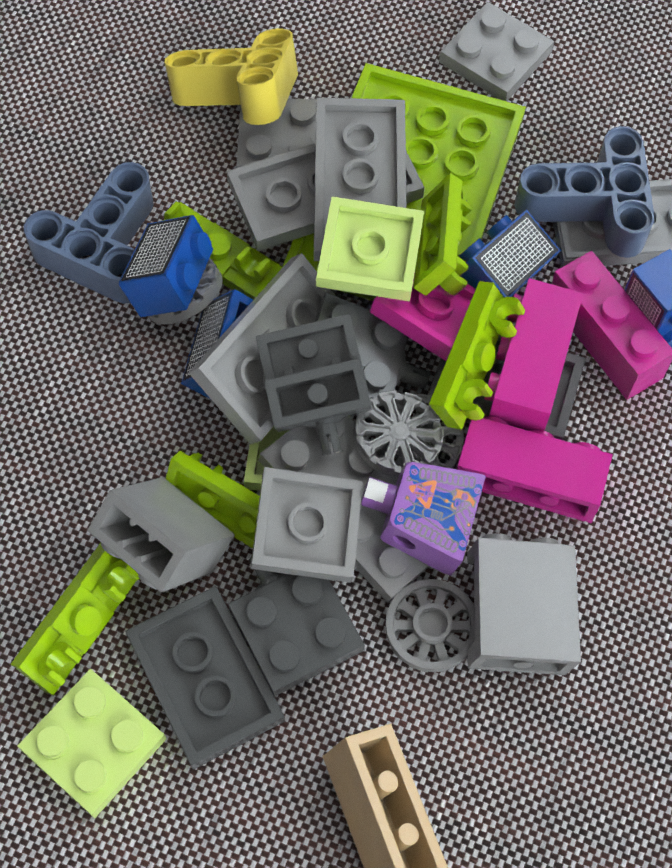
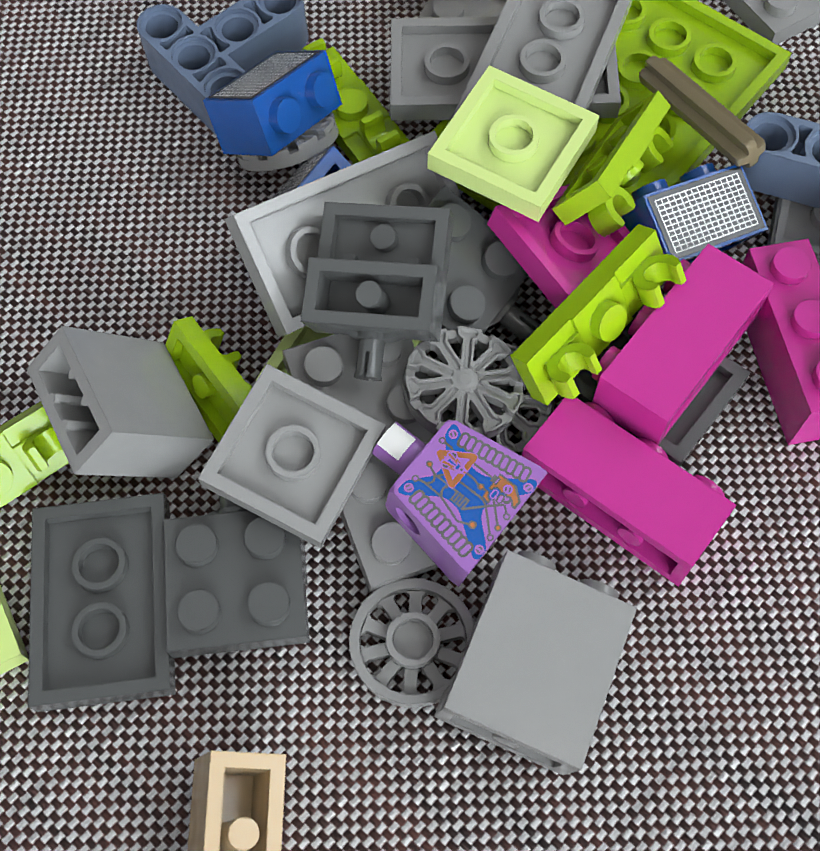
camera: 25 degrees right, 0 degrees up
(483, 177) = (703, 112): none -> dark tan axle

